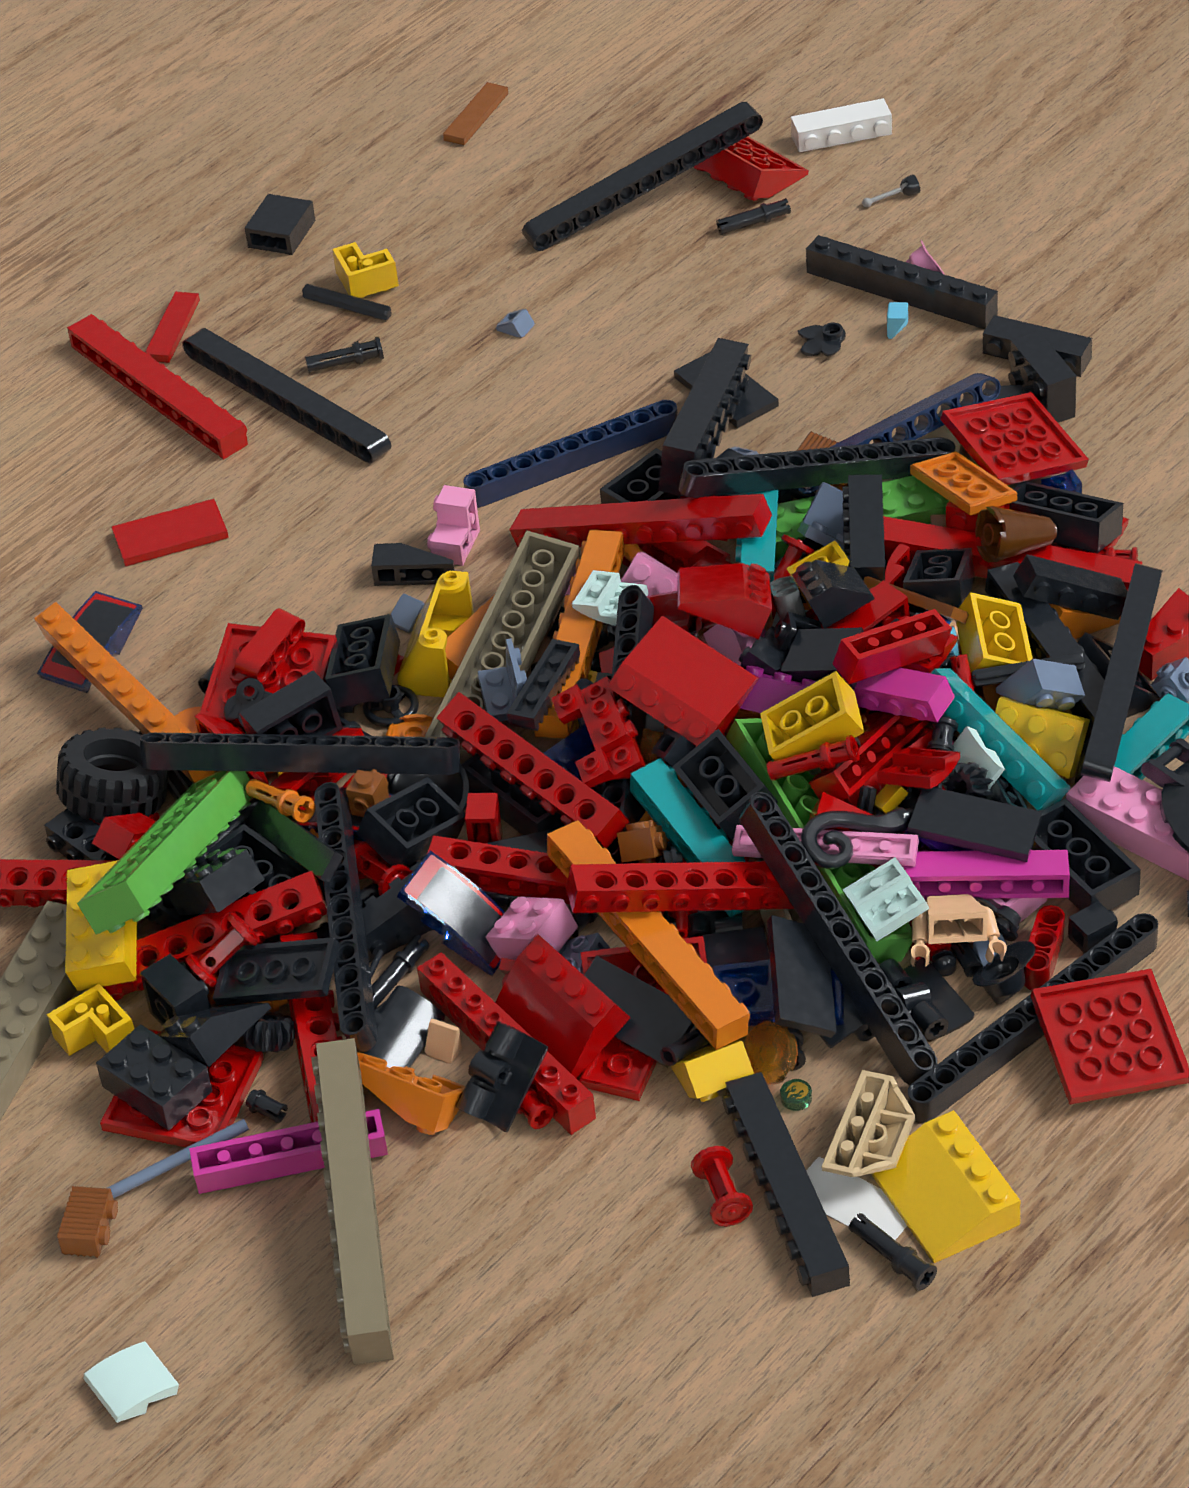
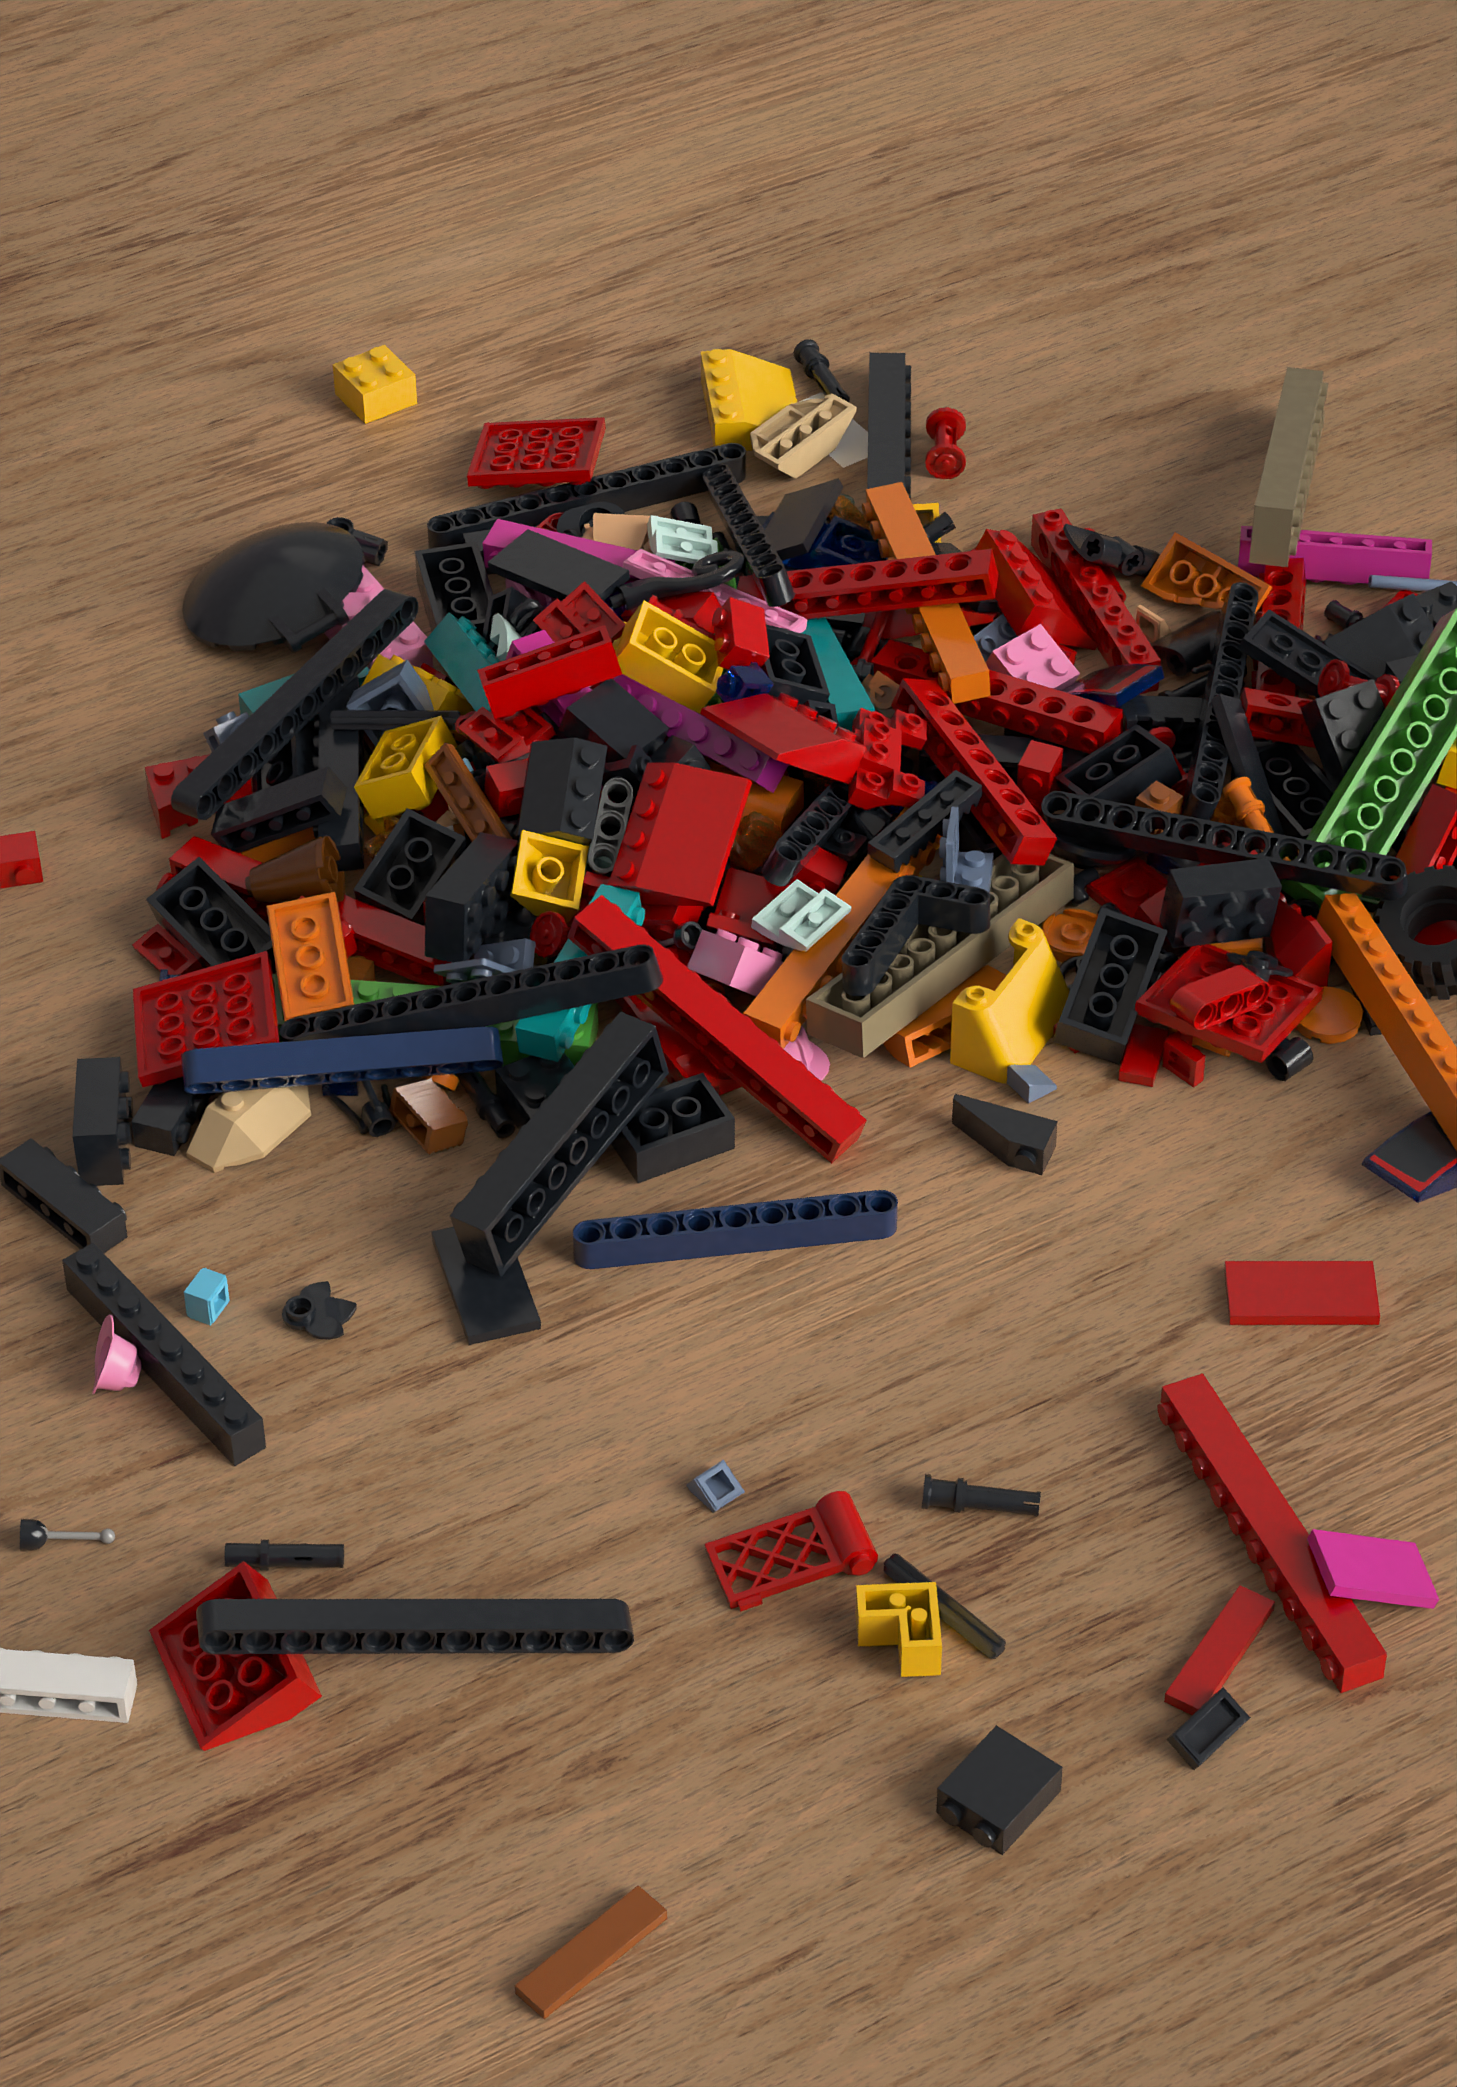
camera: 165 degrees left, 0 degrees up
(85, 371) = (1372, 1569): none -> dark pink tile
(168, 285) = (1208, 1728): none -> black tile
(287, 395) = (1090, 1458): black beam -> none
(428, 314) = (834, 1524): none -> red piece
(455, 525) = (931, 1154): bright pink brick -> none
(488, 640) = (905, 905): none -> black beam
(738, 718) = (738, 681): none -> clear blue brick
(760, 750) = (740, 634): none -> red brick

